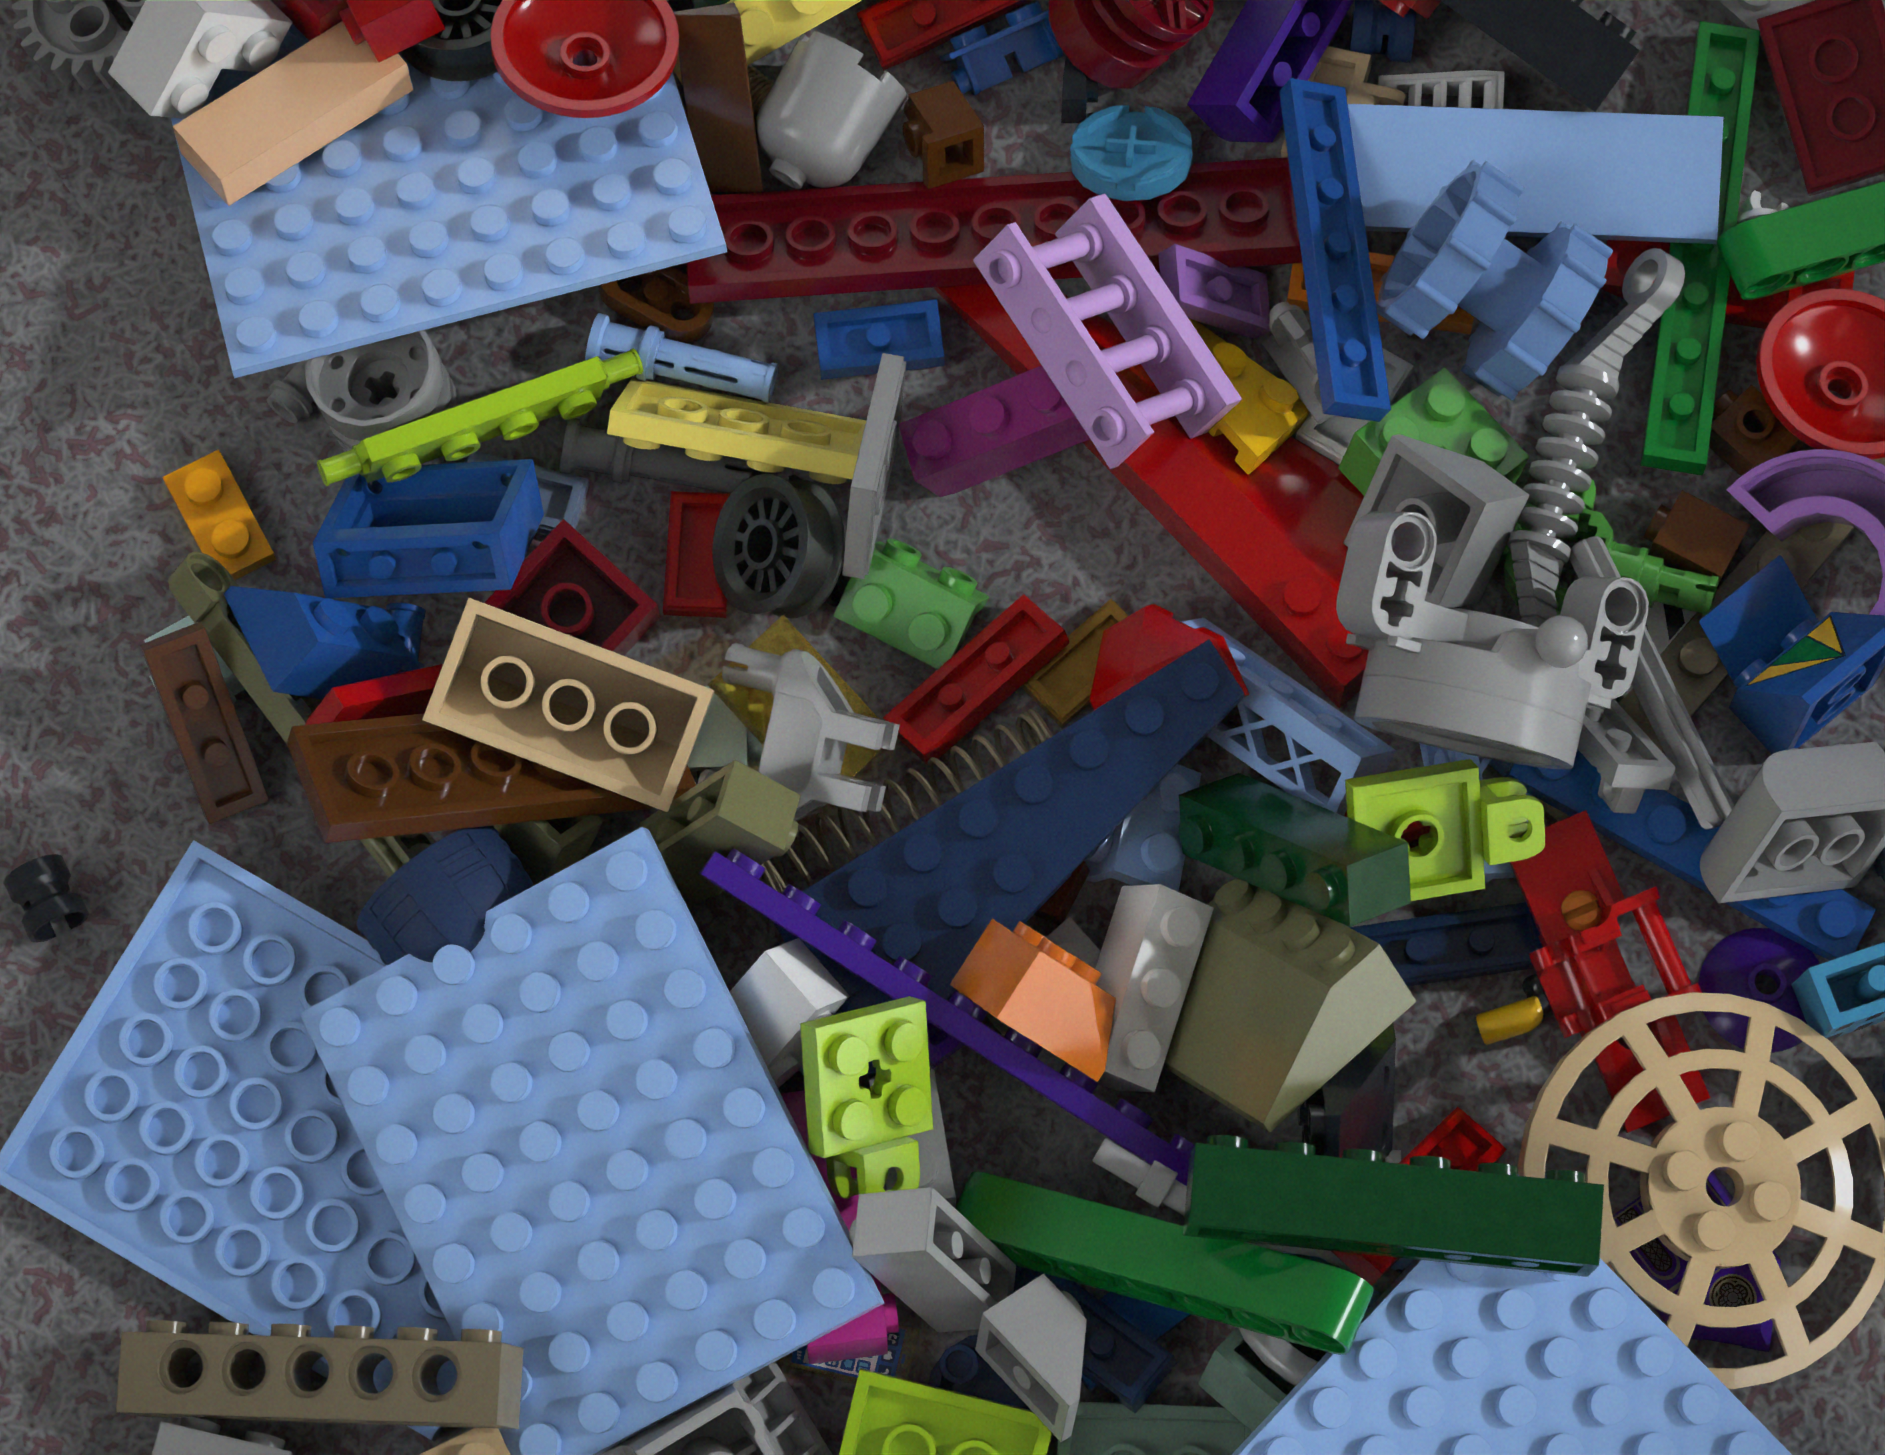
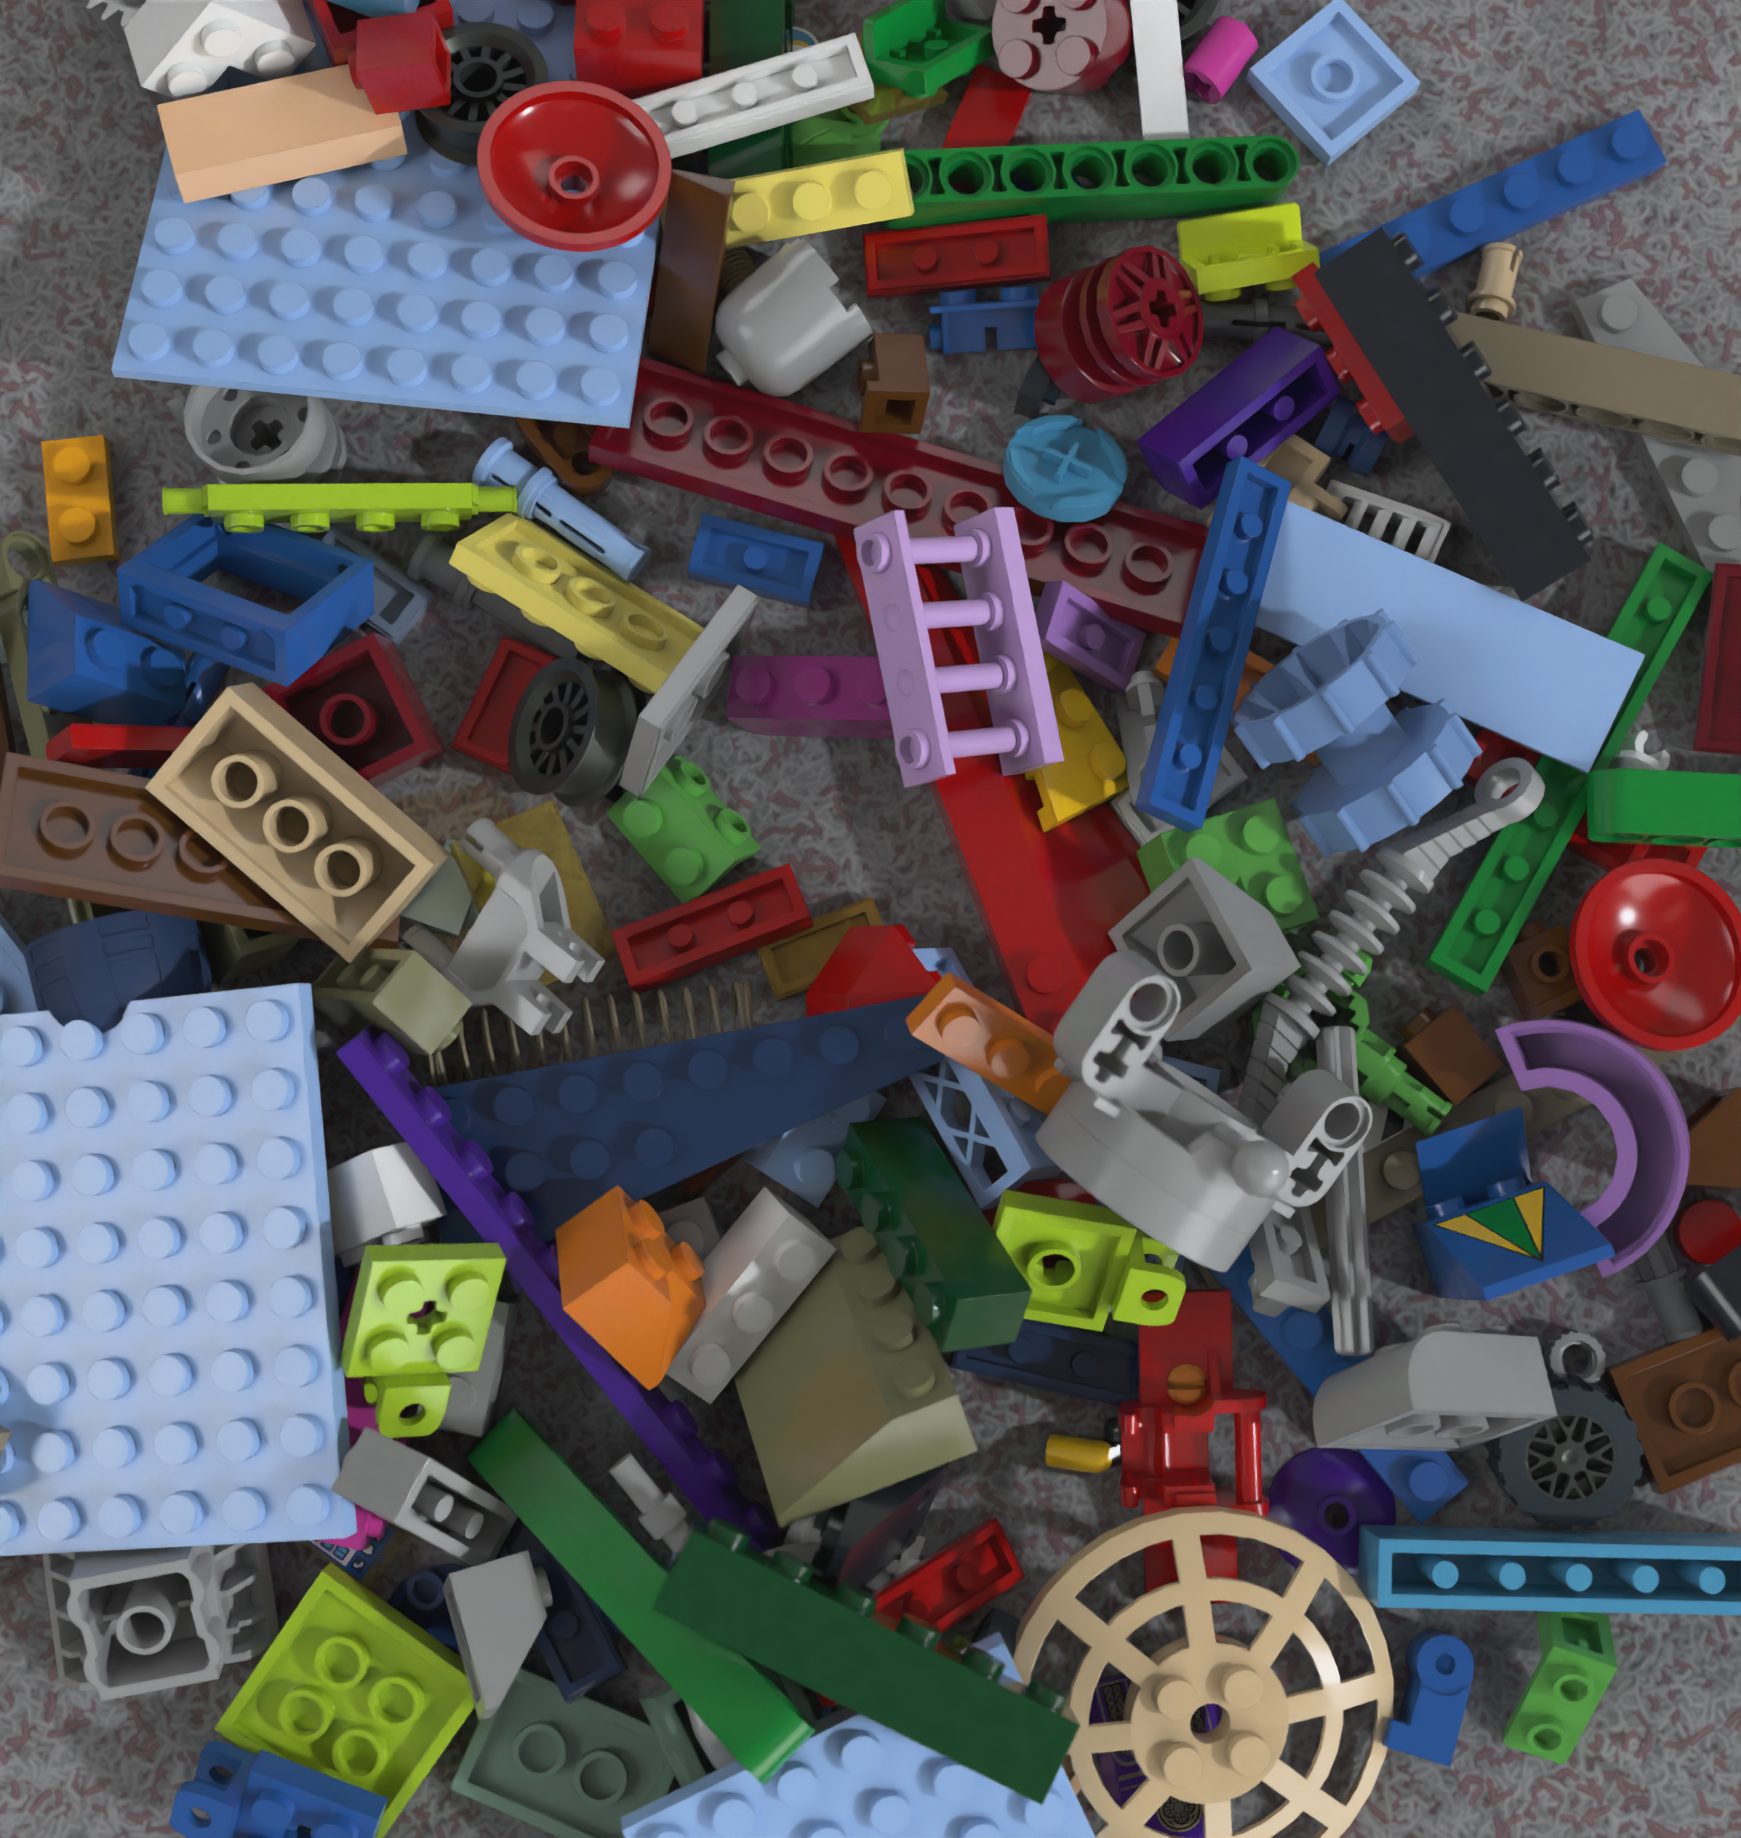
camera: 15 degrees right, 10 degrees up
(1283, 661) = (990, 1041): none -> orange plate

